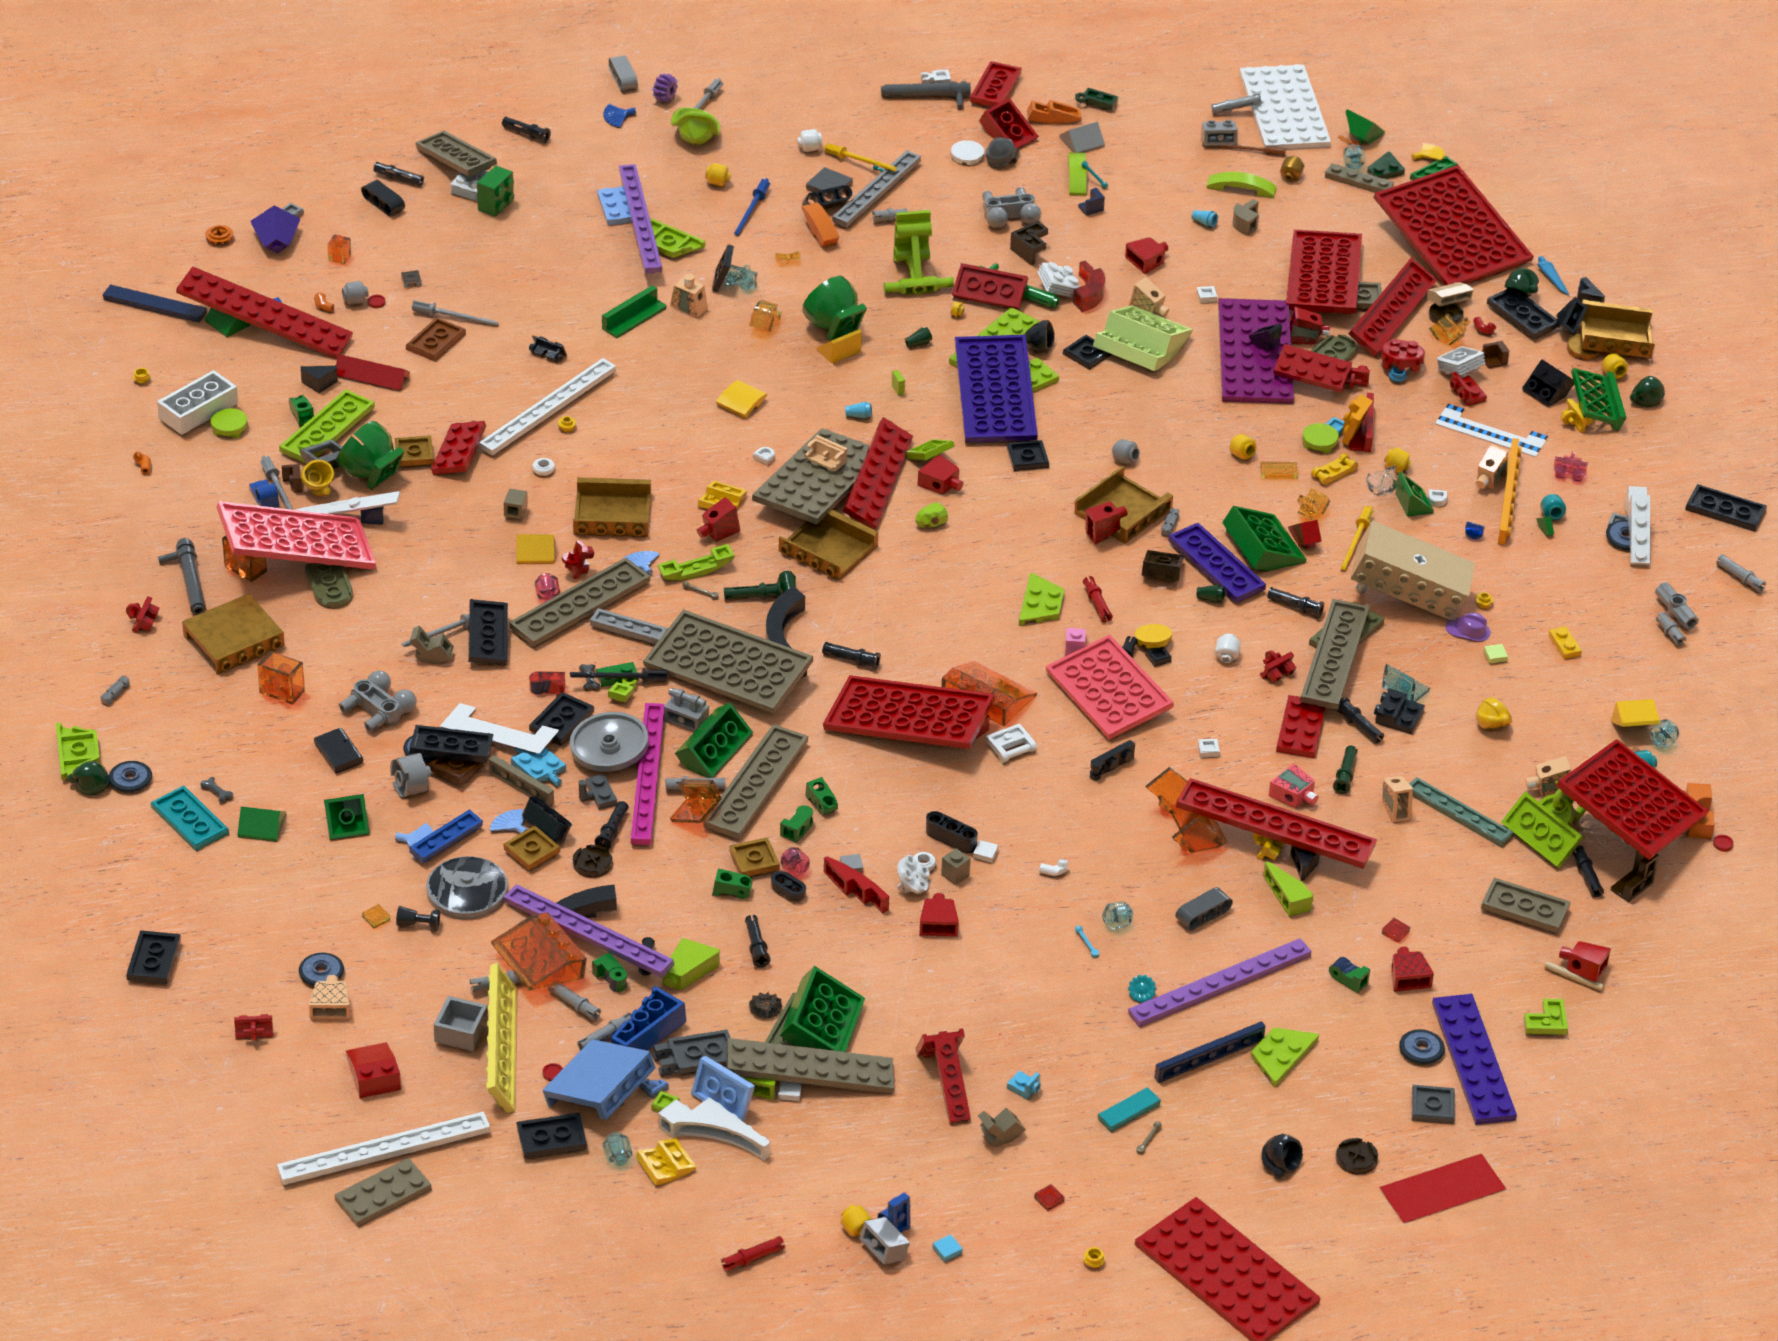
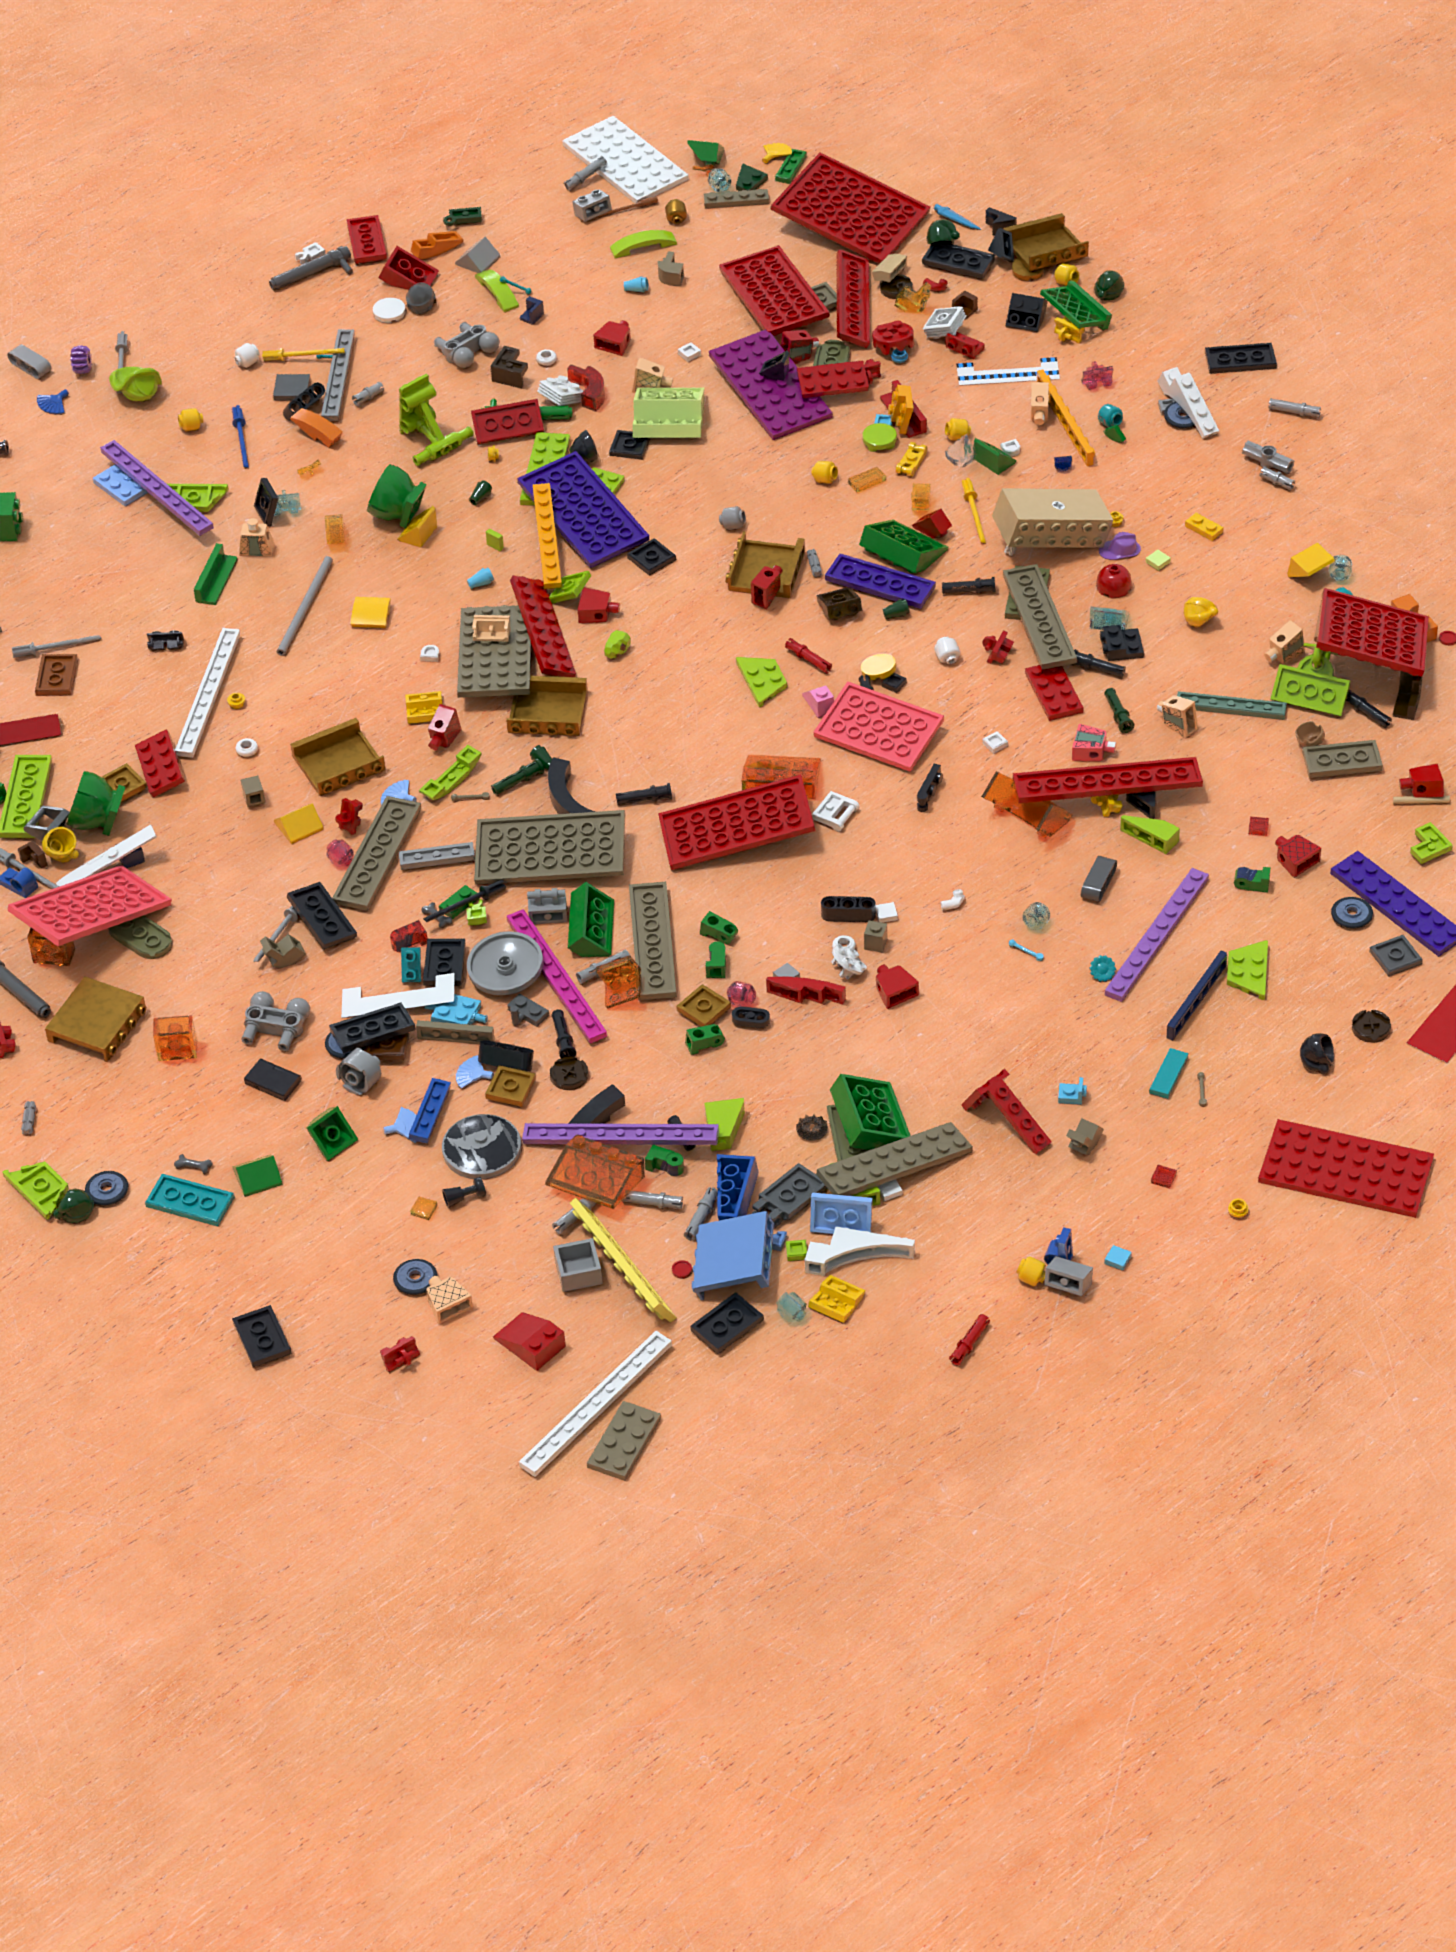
camera: 25 degrees left, 5 degrees up
(528, 706) = (411, 964): none -> teal hips
(666, 383) = (304, 606): none -> light grey piece
(758, 946) = (767, 1080): black pin -> none
(942, 396) = (547, 536): none -> light orange plate
(1073, 247) = (542, 360): none -> white piece
(1436, 654) = (1114, 581): none -> red cylinder
(1509, 869) = (1309, 734): none -> medium nougat hair

